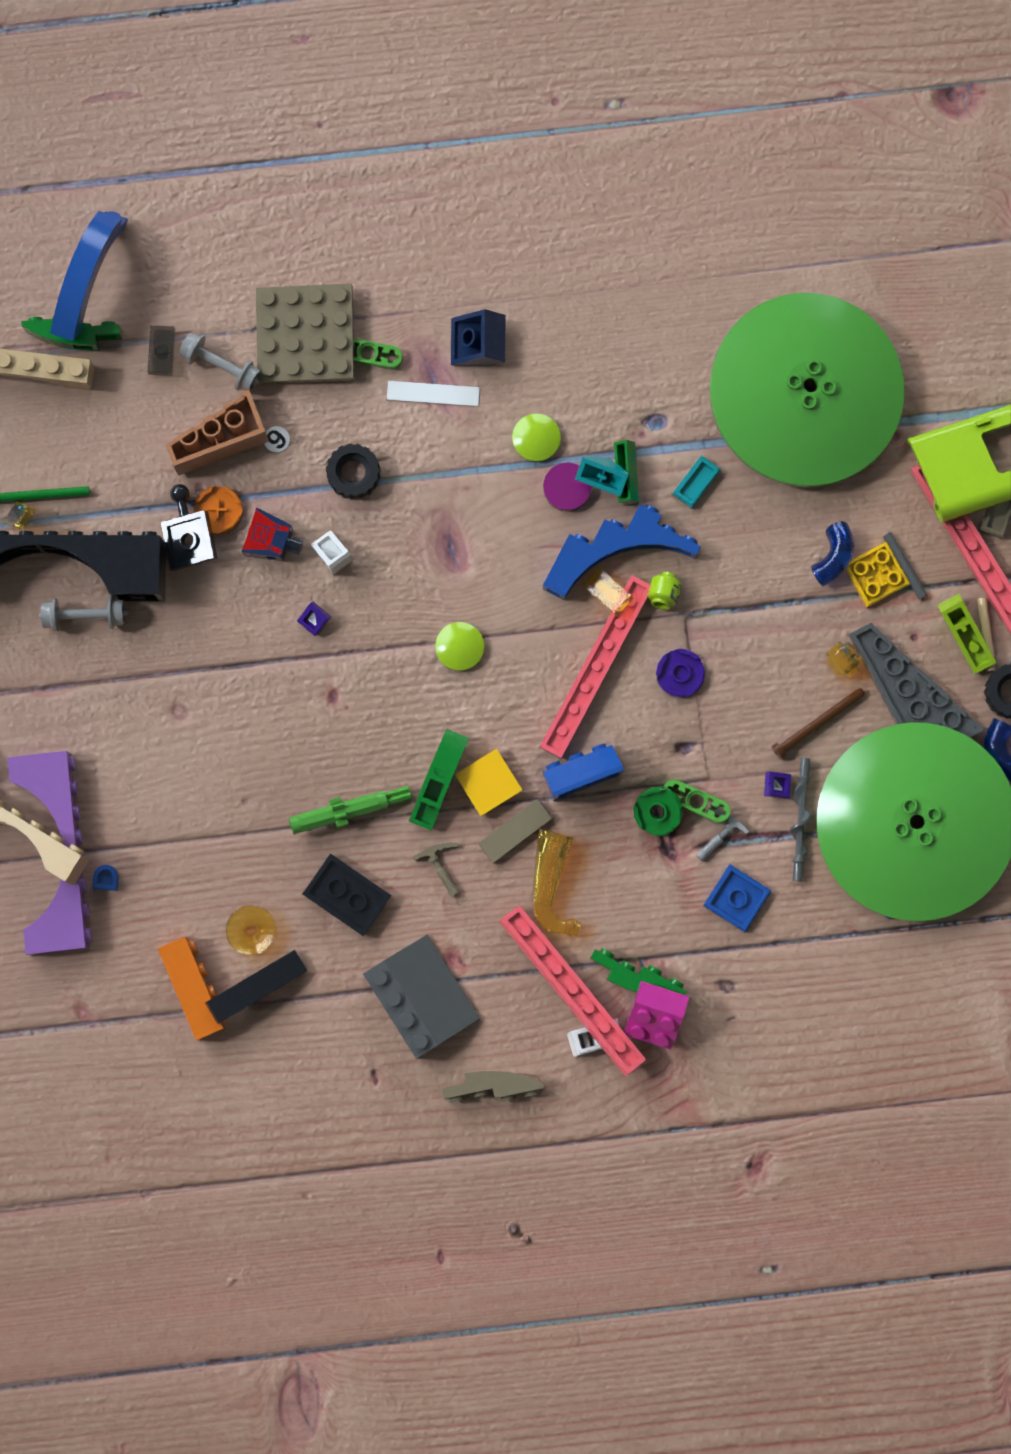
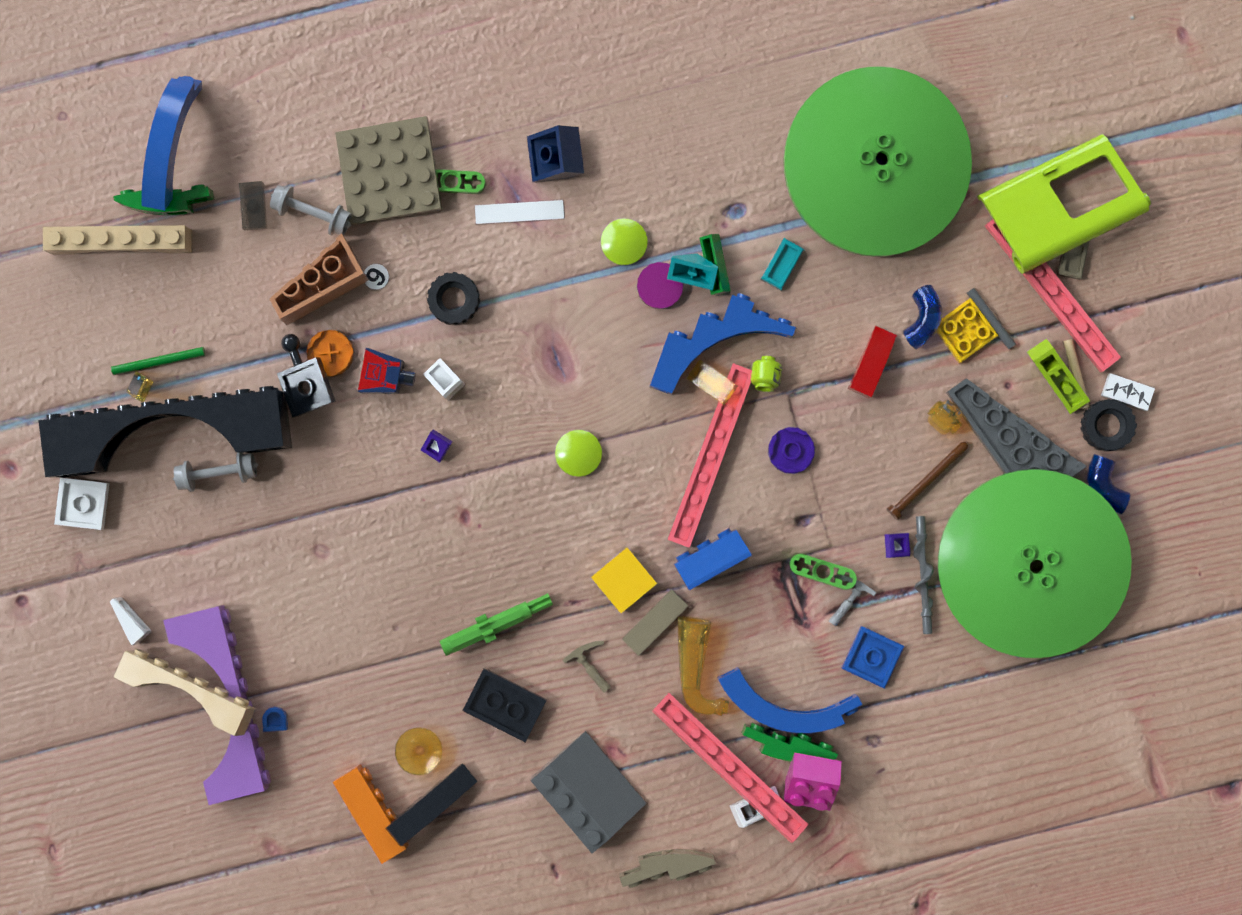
camera: 10 degrees left, 5 degrees up
(438, 779) = (576, 584): green slope -> none
(612, 935) = (782, 718): none -> blue arch
(672, 810) = (788, 572): green tile -> none
(775, 593) = (872, 362): none -> red slope

